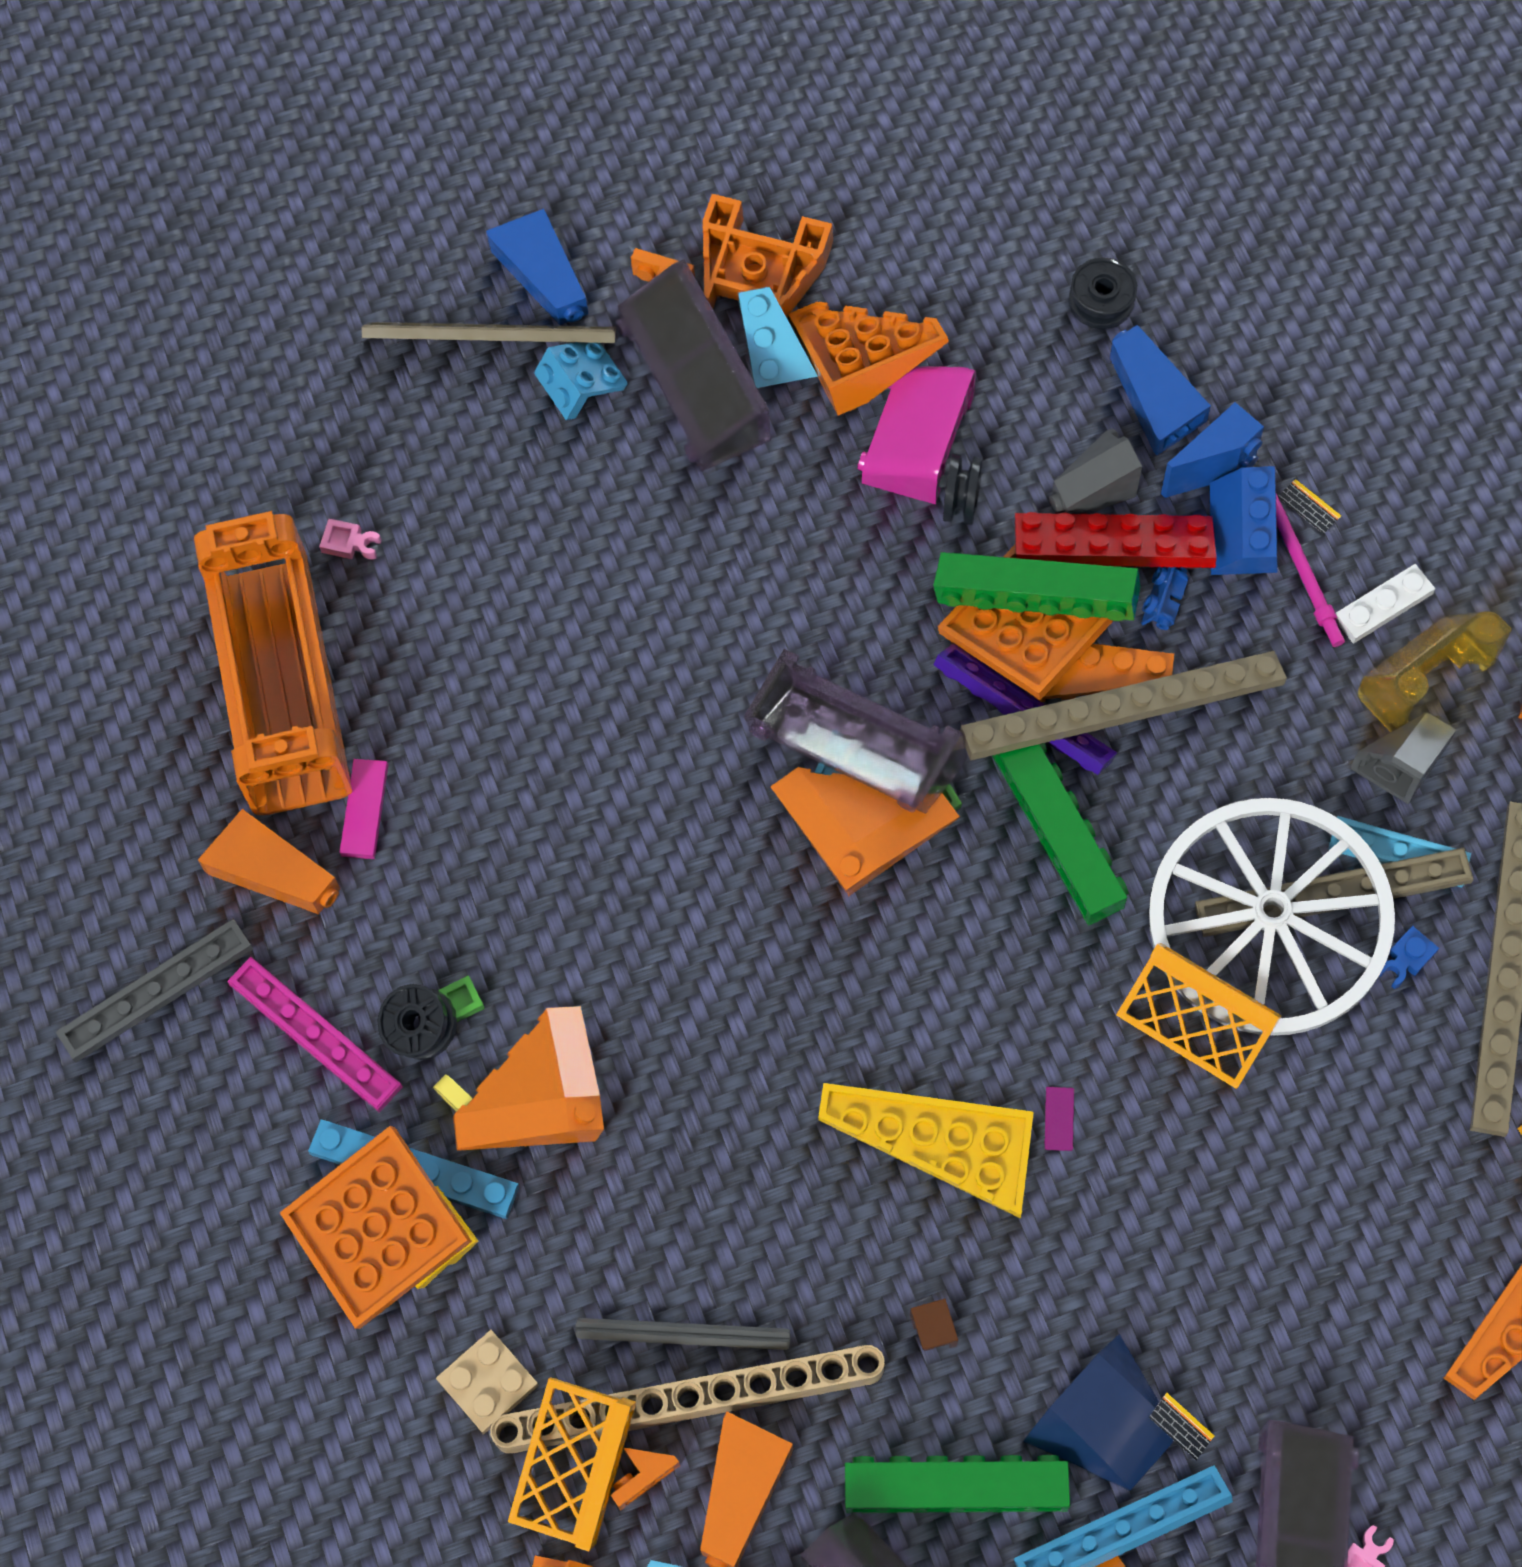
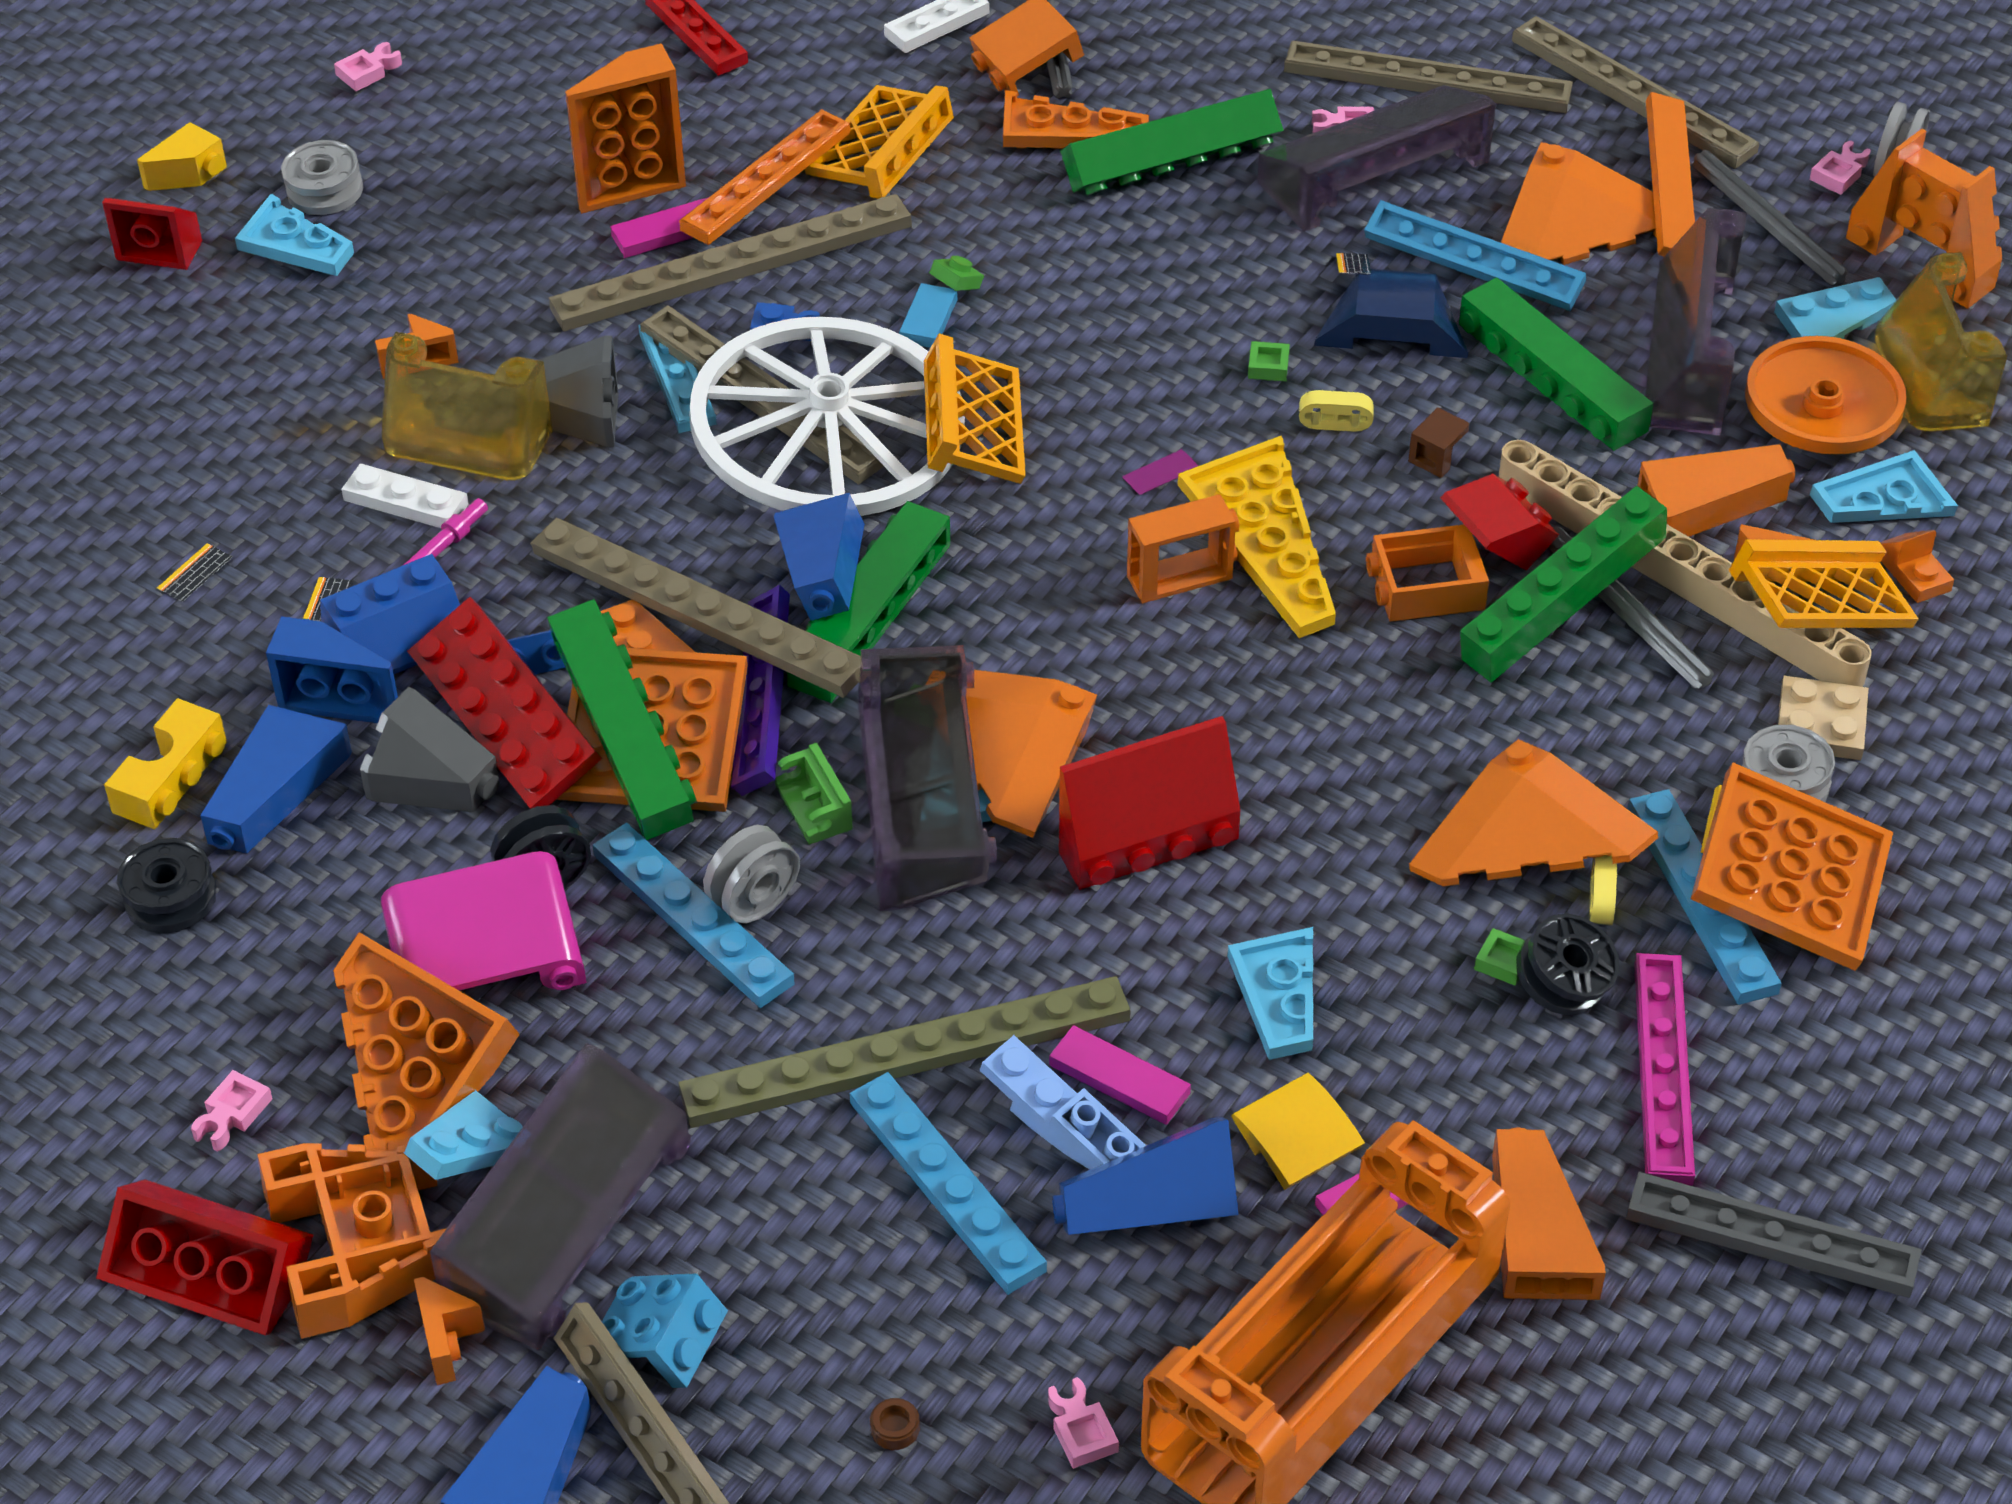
camera: 130 degrees left, 20 degrees down
(429, 458) = (894, 1424): none -> reddish brown tile
(438, 785) = (1298, 1130): none -> yellow slope
(453, 1284) = (1792, 758): none -> light grey wheel
(454, 667) = (1160, 1183): none -> blue slope
(544, 849) = (1278, 989): none -> medium azure wing
(548, 666) = (1052, 1109): none -> light blue slope
(558, 720) = (1120, 1074): none -> dark pink tile
(561, 580) = (948, 1183): none -> dark azure plate
(667, 620) = (901, 1051): none -> olive plate
(714, 1280) = (1563, 584): none -> green brick
(722, 853) = (1148, 803): none -> red slope
(793, 1243) = (1424, 548): none -> orange window
(805, 189) = (201, 1255): none -> red slope
(811, 1287) = (1503, 518): none -> red slope
(854, 594) = (751, 873): none -> light grey wheel
(859, 565) = (693, 915): none -> dark azure plate
(900, 251) = (231, 1105): none -> bright pink plate
(906, 688) = (814, 795): none -> bright green hinge
(945, 1046) = (1190, 570): none -> orange window
(1022, 1279) = (1336, 410): none -> light yellow beam
(1106, 801) = (822, 552): none -> blue slope
(1113, 1273) = (1268, 361): none -> bright green plate
(1220, 360) = (151, 789): none -> yellow arch
(1344, 1066) = (928, 314): none -> dark azure tile
(1374, 1112) = (957, 273): none -> bright green plate
(1399, 446) = (194, 572): none -> black sticker
(1423, 1387) = (1172, 141): none -> green brick

